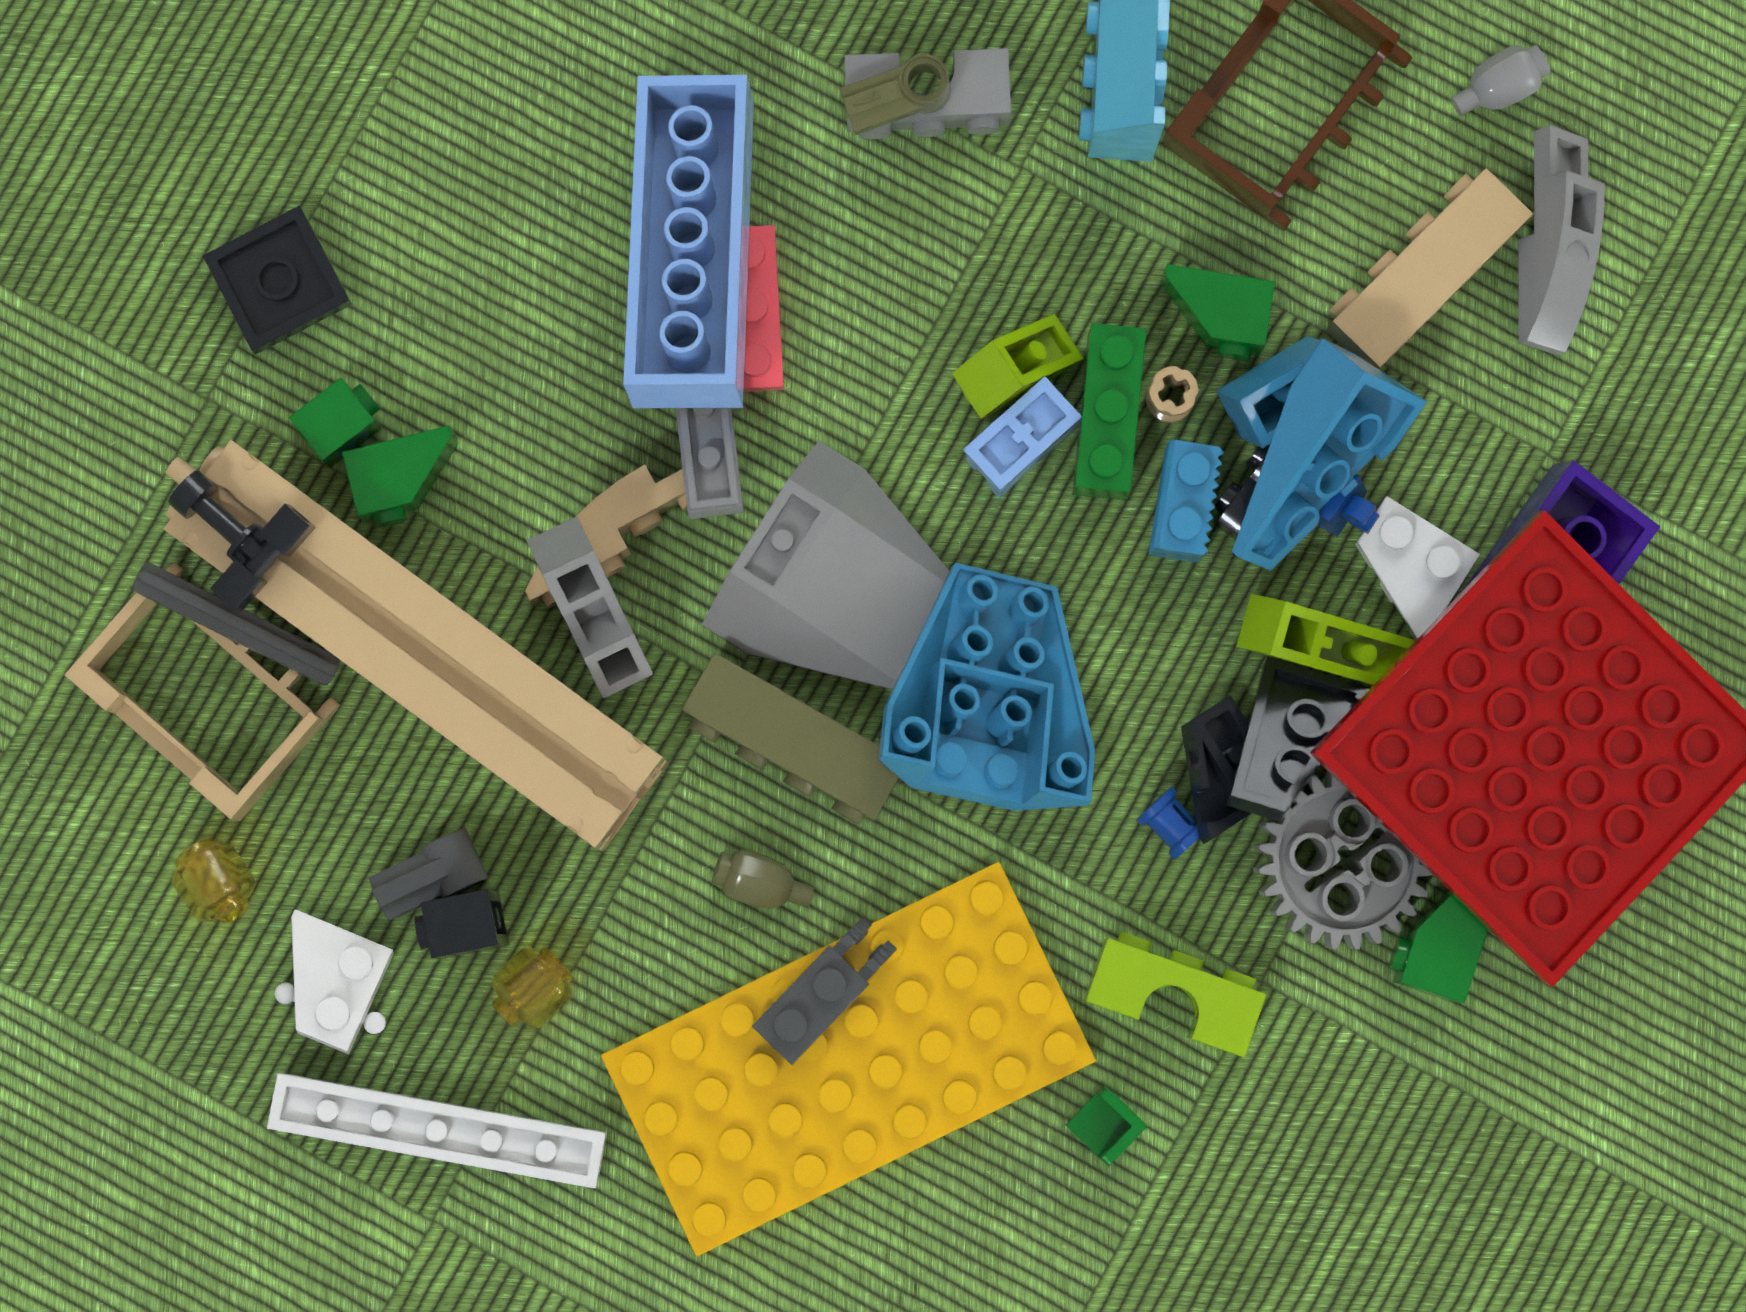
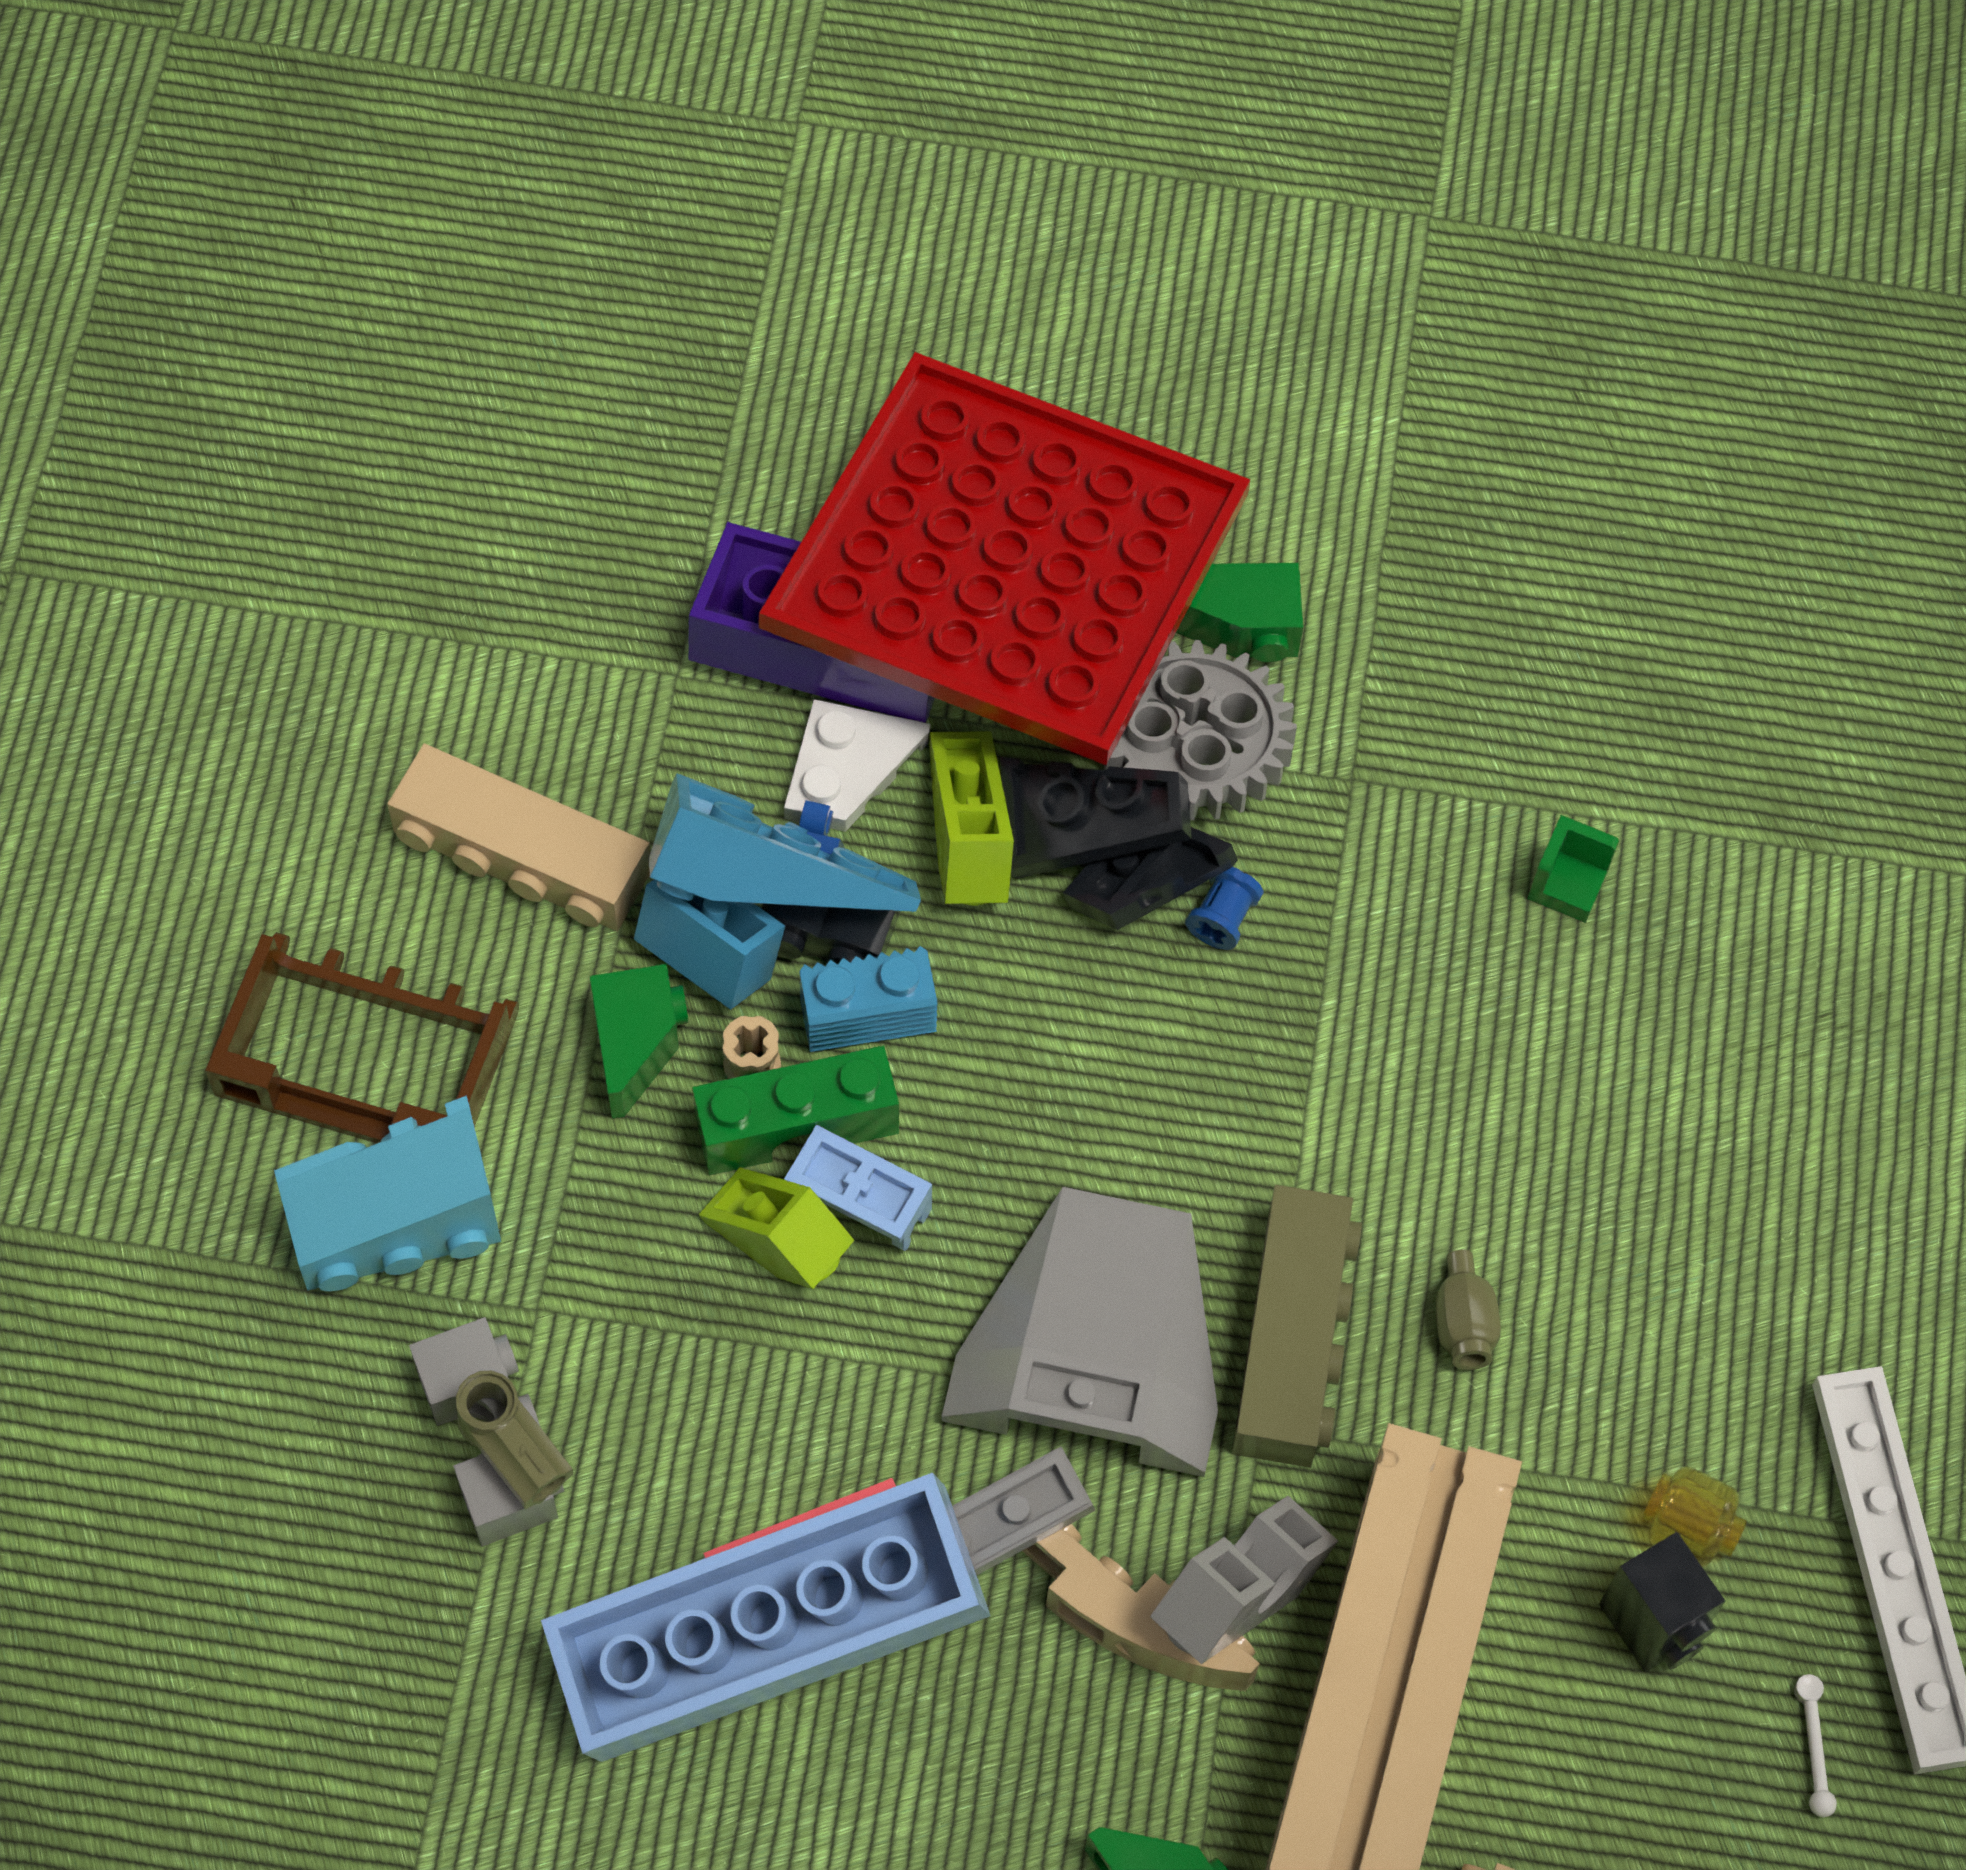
camera: 115 degrees left, 20 degrees down
(334, 980) = (1784, 1747): white wing -> none
(441, 869) = (1604, 1665): dark grey piece -> none
(819, 995) = (1563, 1192): dark grey hinge -> none
(931, 1044) = (1619, 1162): yellow plate -> none
(992, 699) = (1162, 1120): dark azure wedge -> none
(1223, 1007) = (1406, 897): lime arch -> none
(1503, 79) = (275, 828): light grey plant -> none
(1563, 252) = (466, 707): light grey slope -> none

